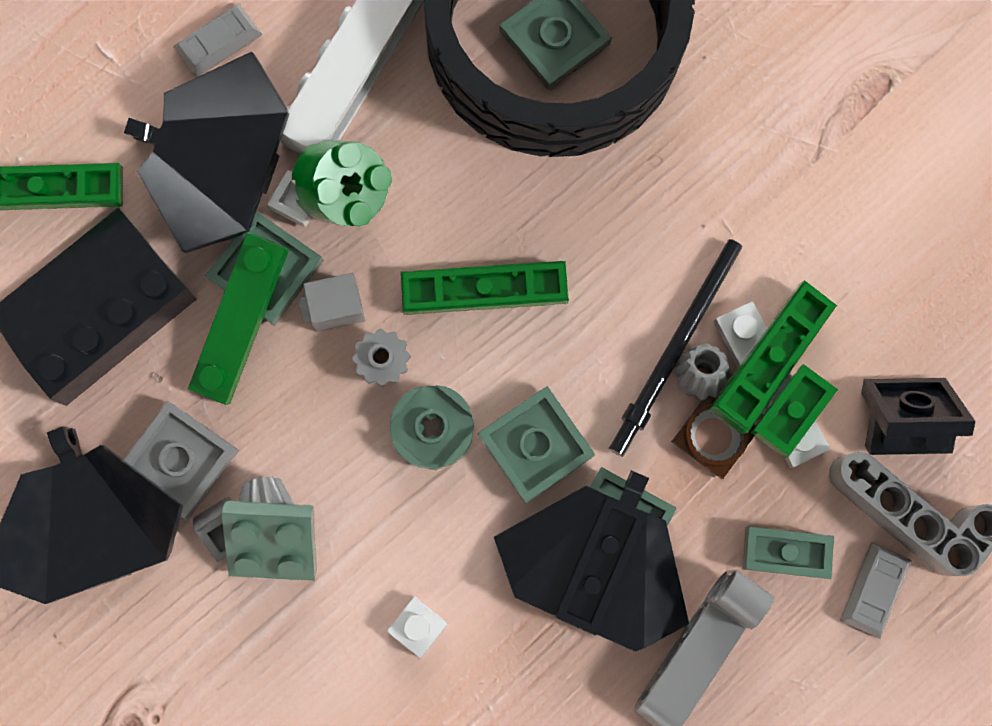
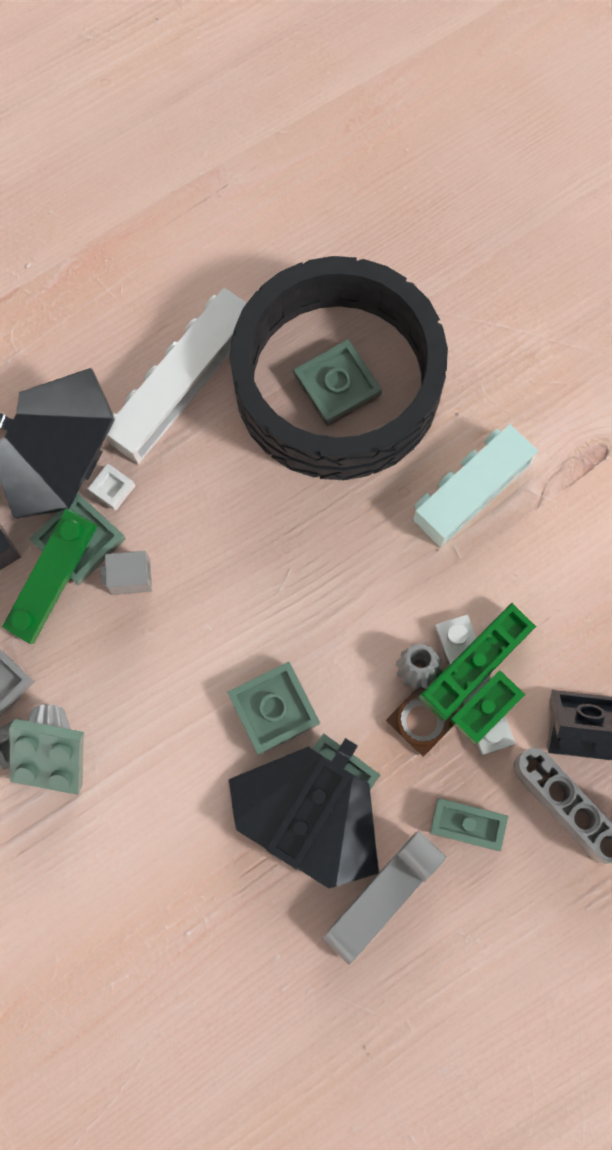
camera: 15 degrees right, 5 degrees down
(217, 40) = (70, 356): light grey tile -> none
(341, 182) = (164, 481): brick -> none
(379, 342) = (152, 611): light grey piece -> none
(417, 627) = (155, 844): white plate -> none
(429, 403) = (192, 663): sand green plate -> none
(484, 287) = (250, 576): green plate -> none
(637, 414) = (360, 694): black bar -> none
(740, 142) = (474, 485): none -> light aqua brick
(875, 590) = (539, 867): light grey tile -> none

